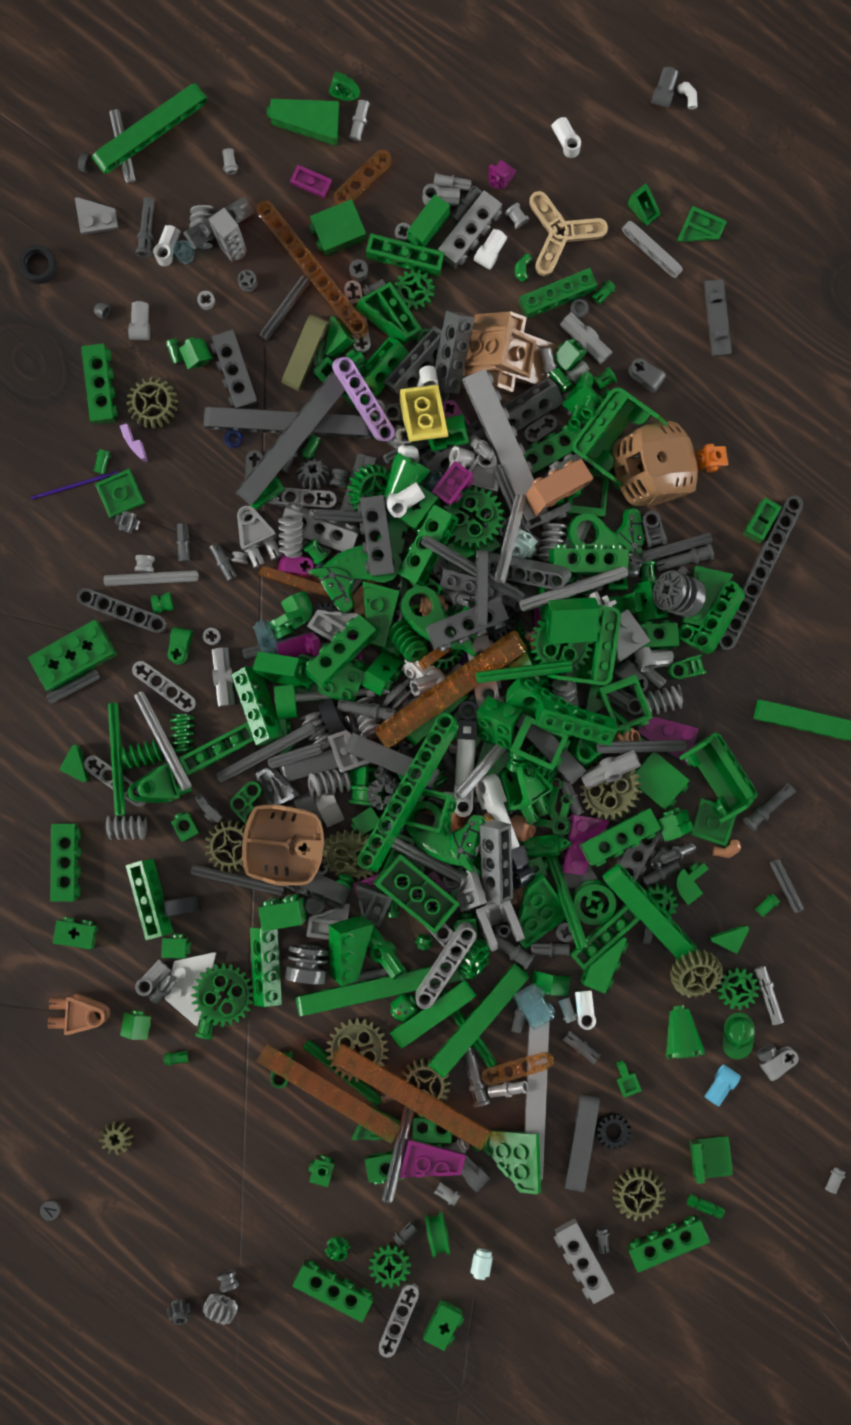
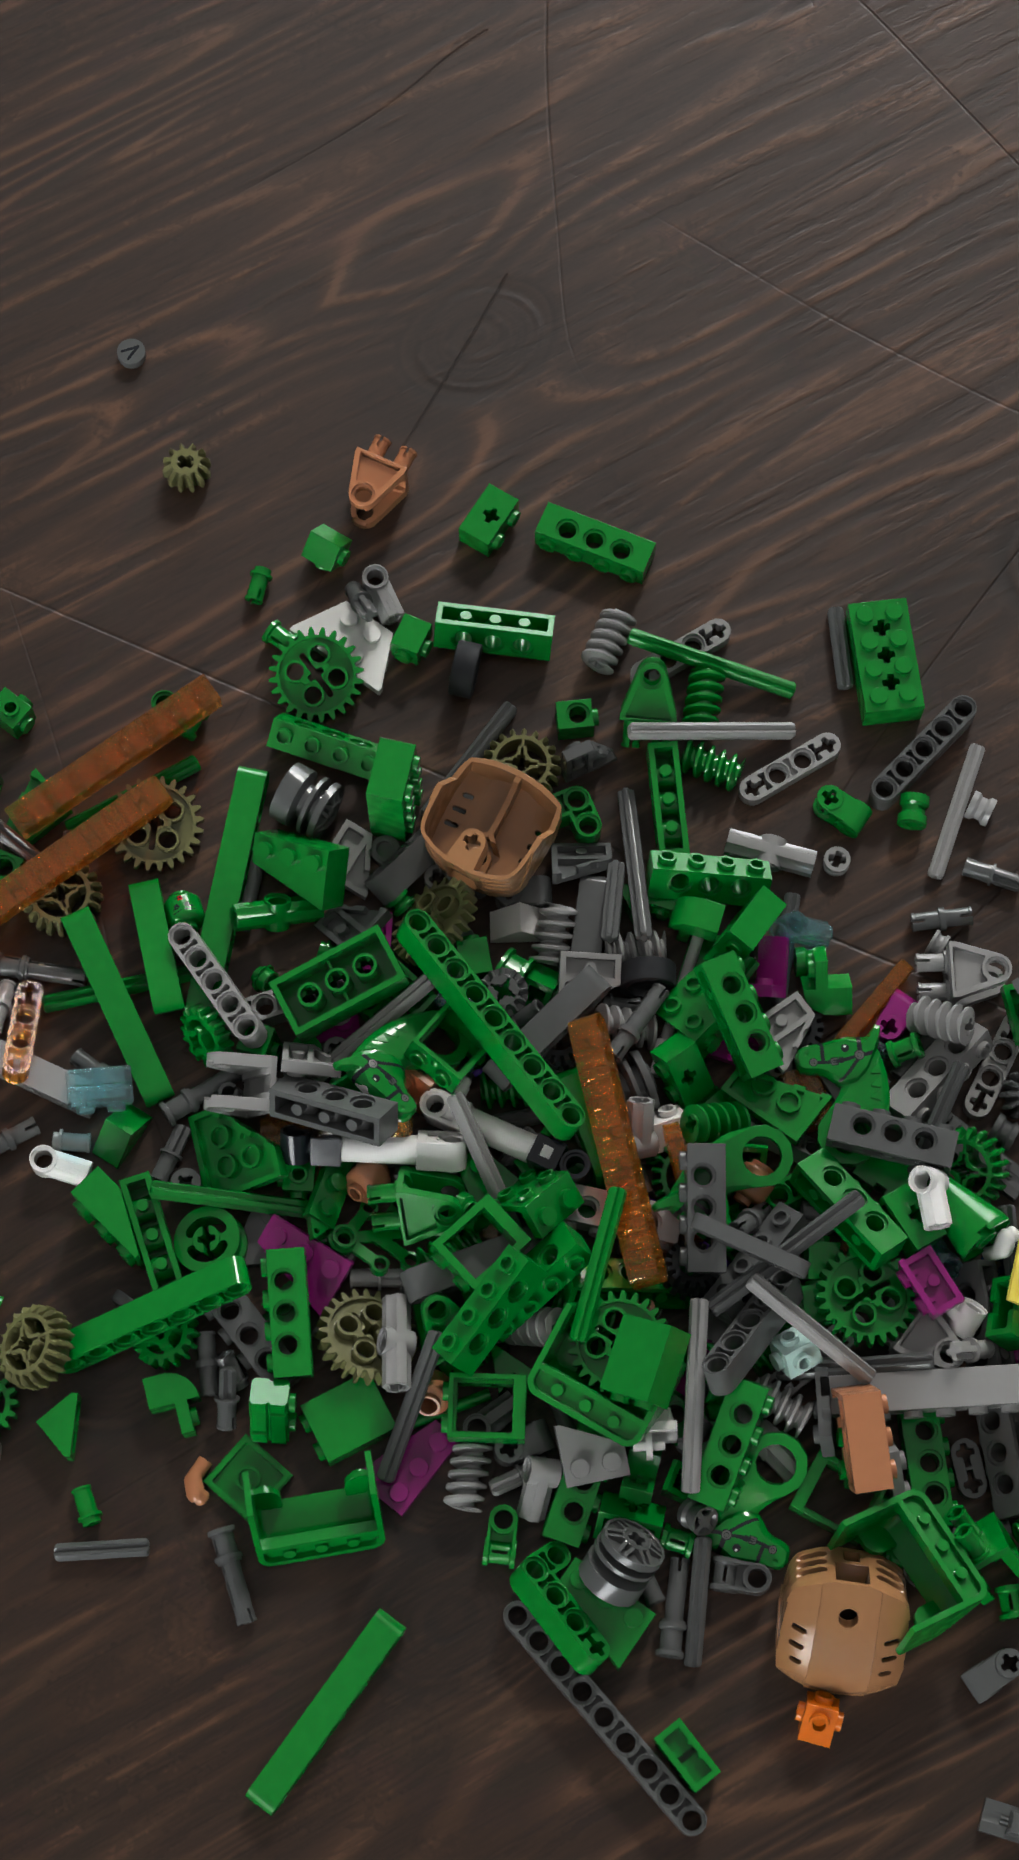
camera: 110 degrees right, 15 degrees down
(74, 764) = (728, 605): green slope -> none

